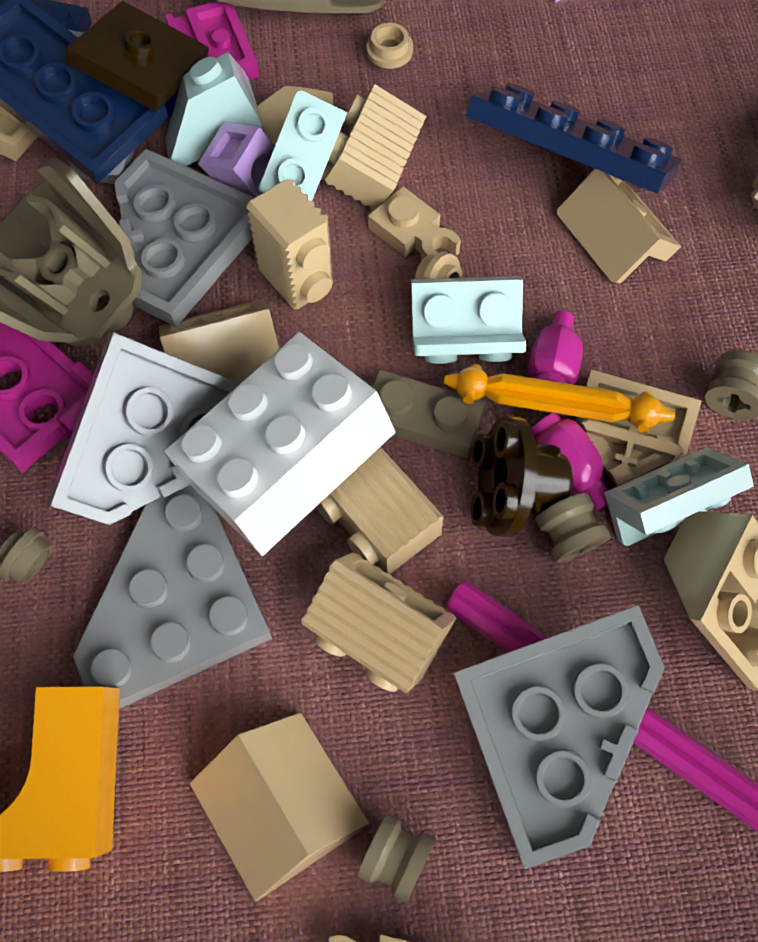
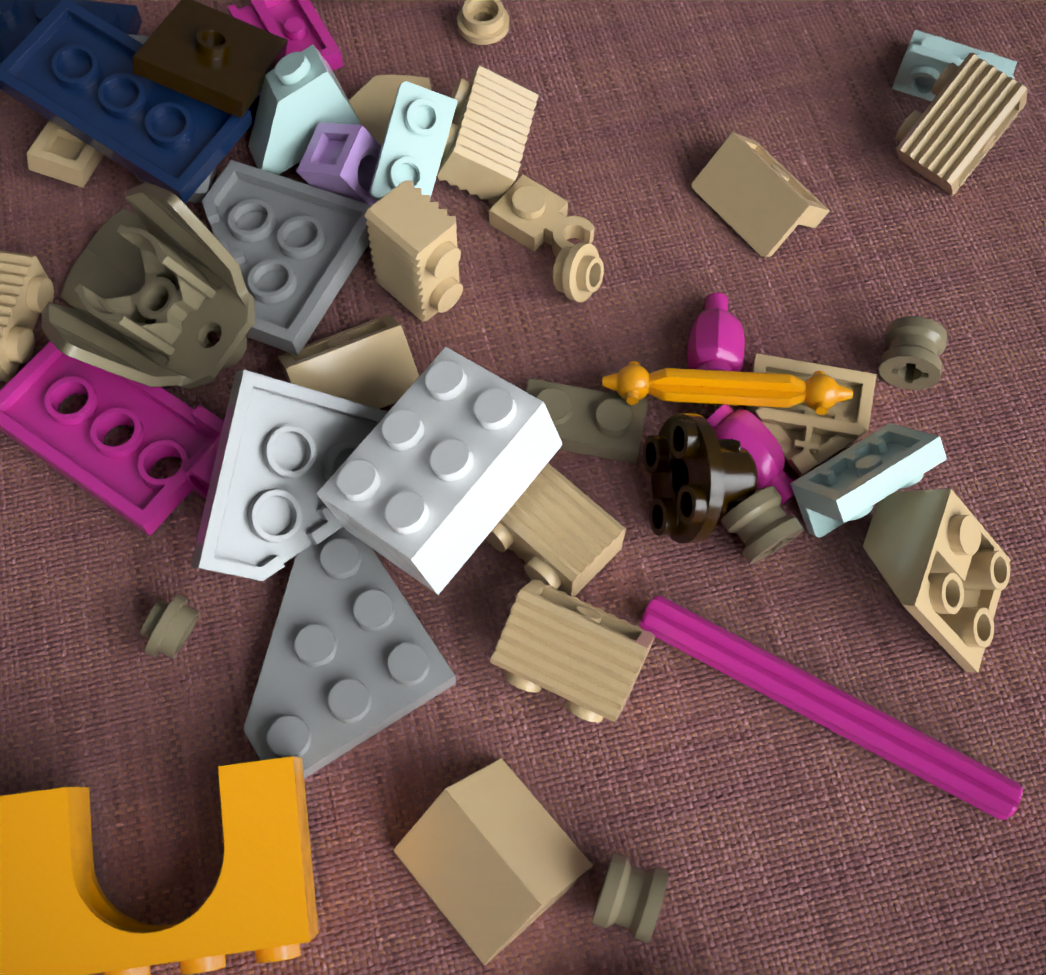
camera: 10 degrees left, 0 degrees up
(467, 318) = (615, 312): light aqua bracket -> none
(561, 727) = (784, 736): light grey plate -> none
(562, 132) = (687, 99): dark blue plate -> none

